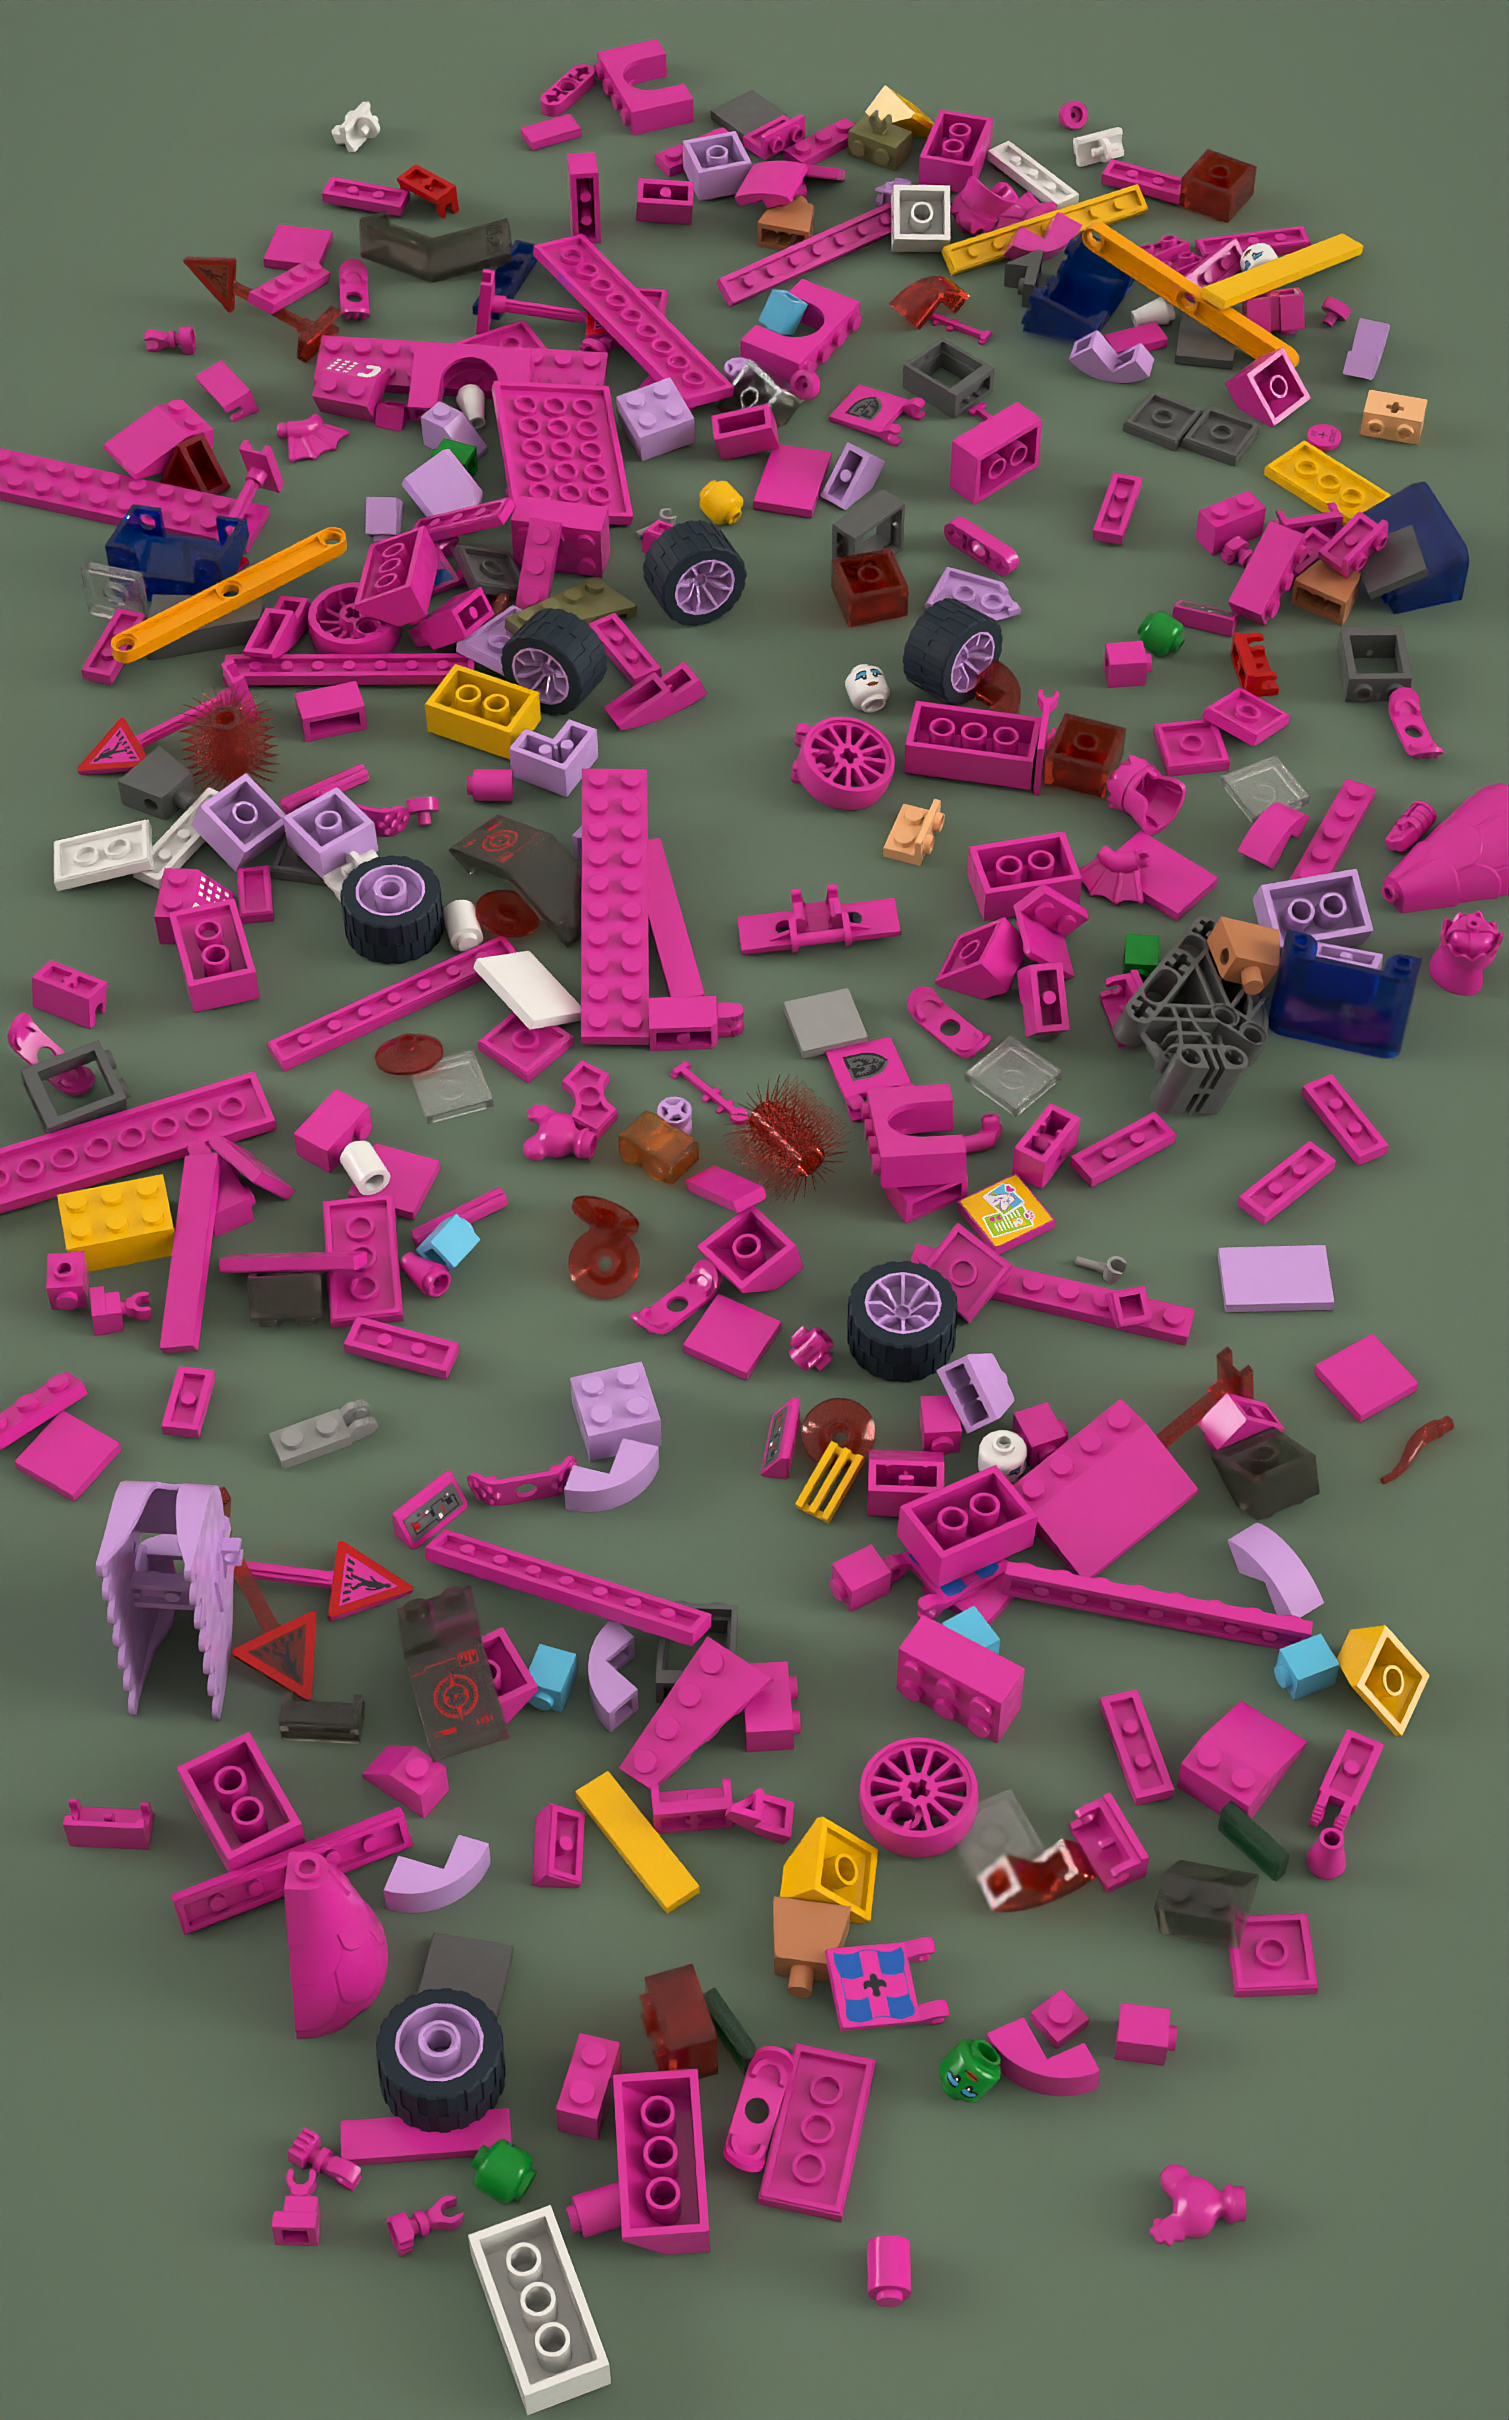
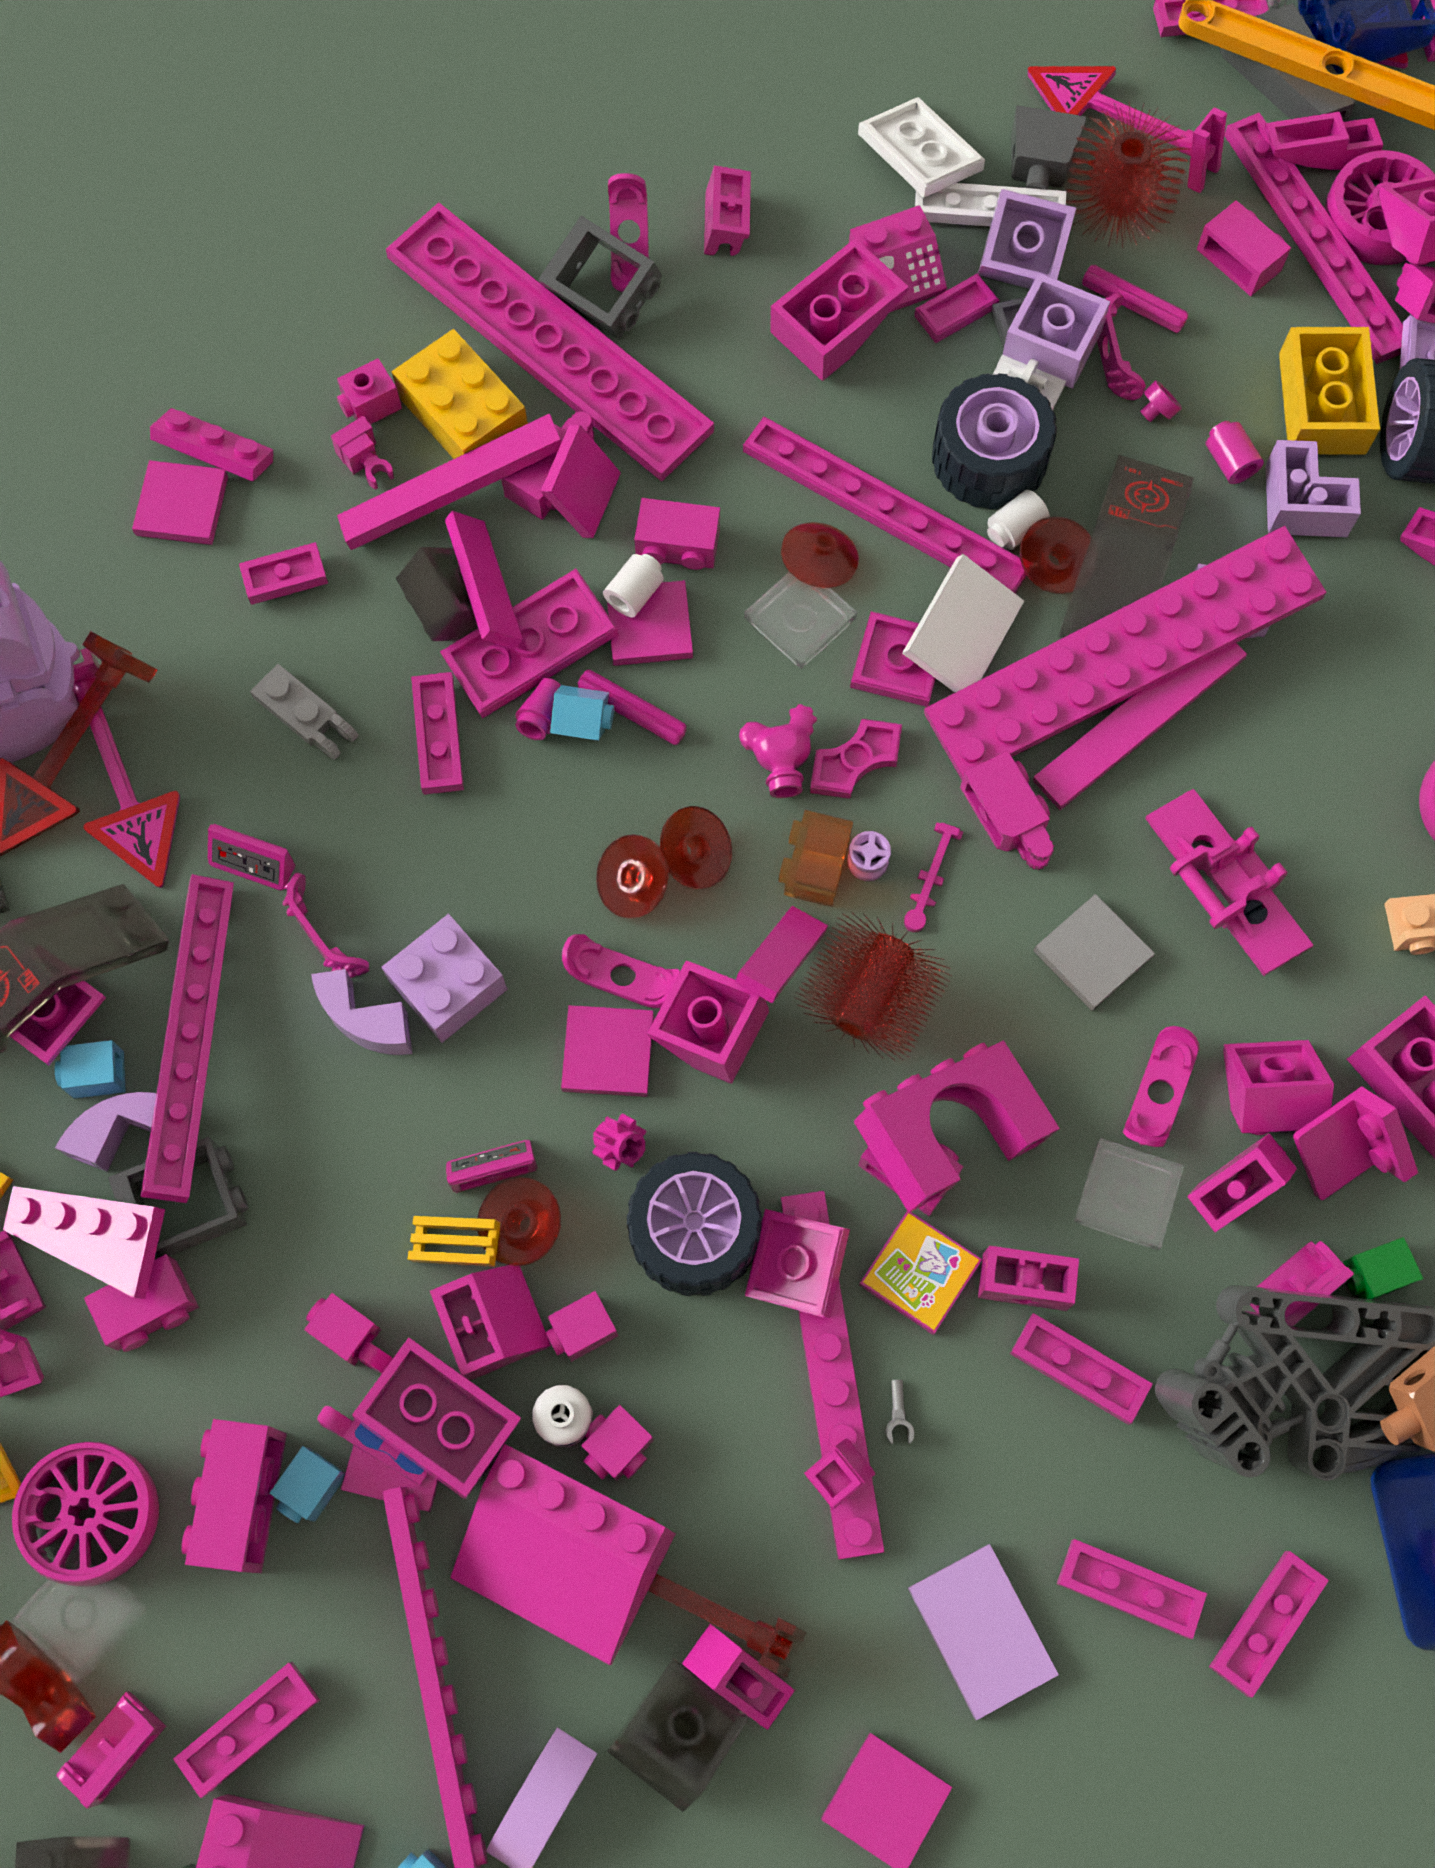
camera: 65 degrees right, 20 degrees up
(866, 1067) = (1049, 1029): dark pink flag -> none
(977, 1389) = (630, 1352): lavender torso -> none
(986, 1136) = (1021, 1202): dark pink arm -> none

